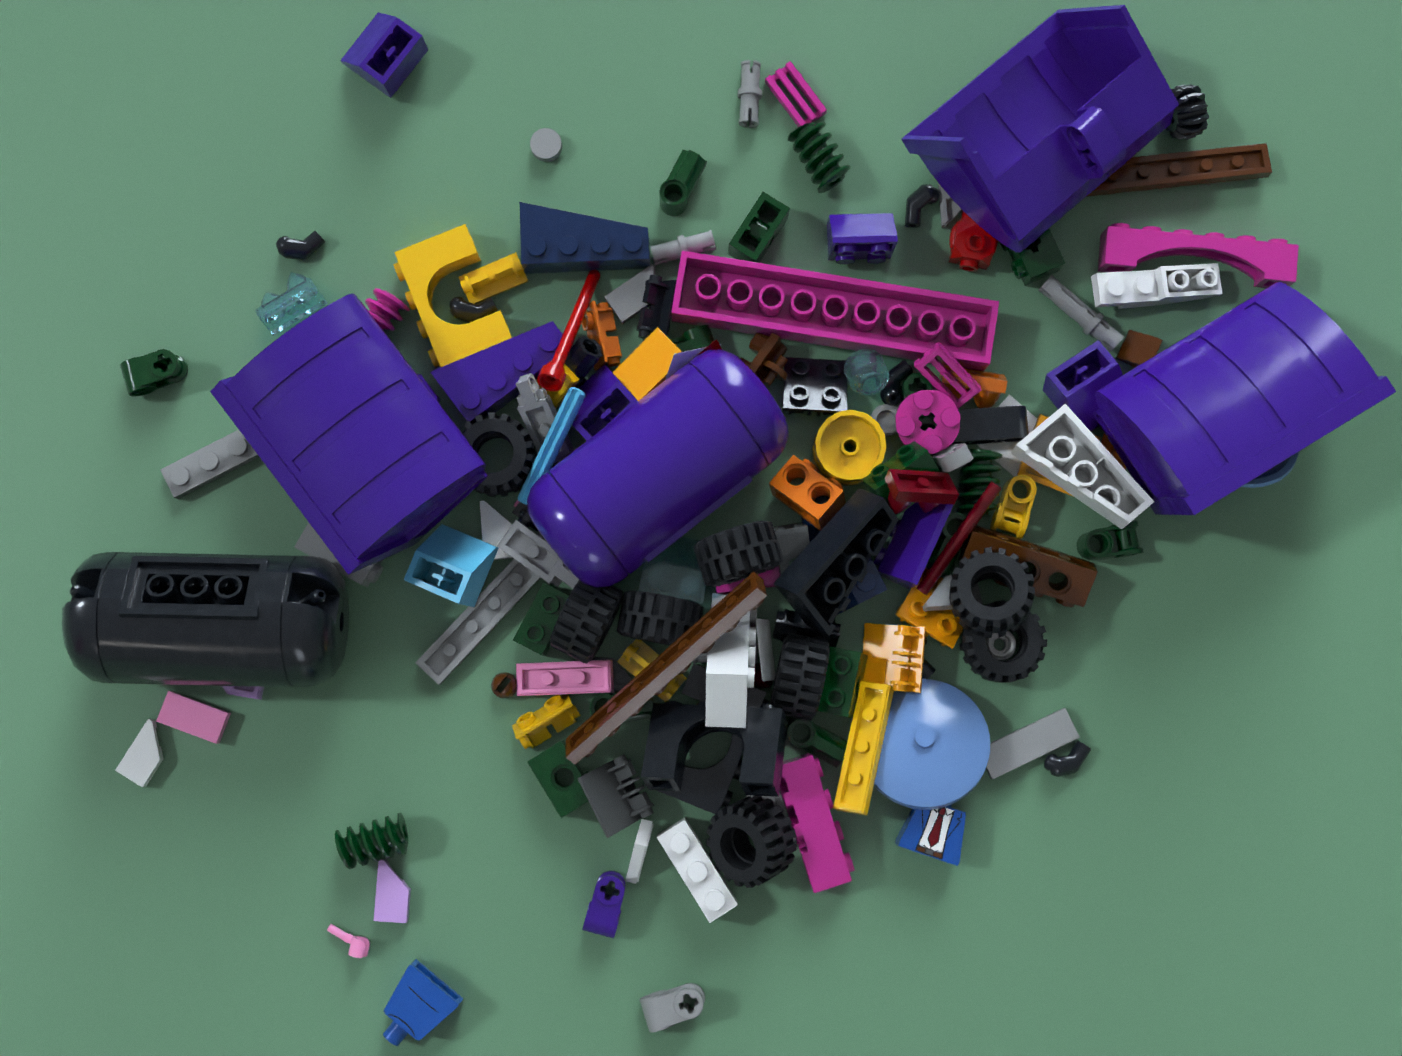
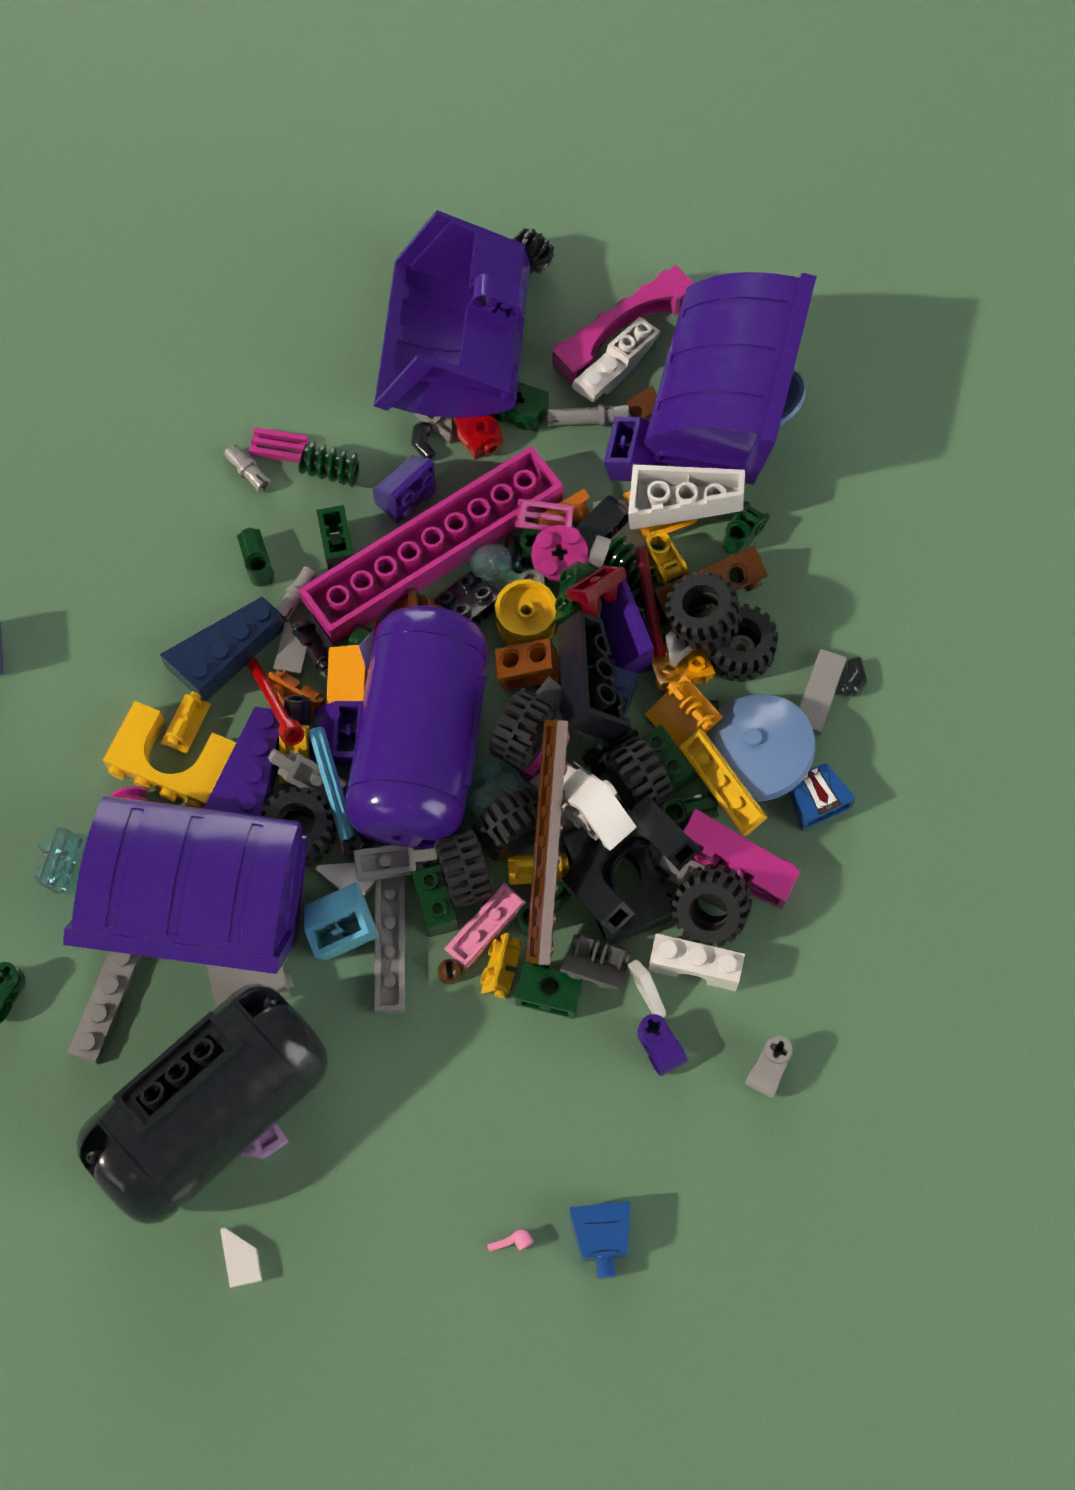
camera: 45 degrees left, 15 degrees down
(193, 717) = (251, 1197): bright pink tile -> none
(299, 249) = (30, 822): black arm -> none
(372, 843) = (462, 1154): dark green piece -> none
(391, 896) = (510, 1183): lavender tile -> none
(470, 312) = (187, 758): black arm -> none
(546, 144) = (140, 612): light grey tile -> none
(1188, 169) = (567, 281): reddish brown plate -> none

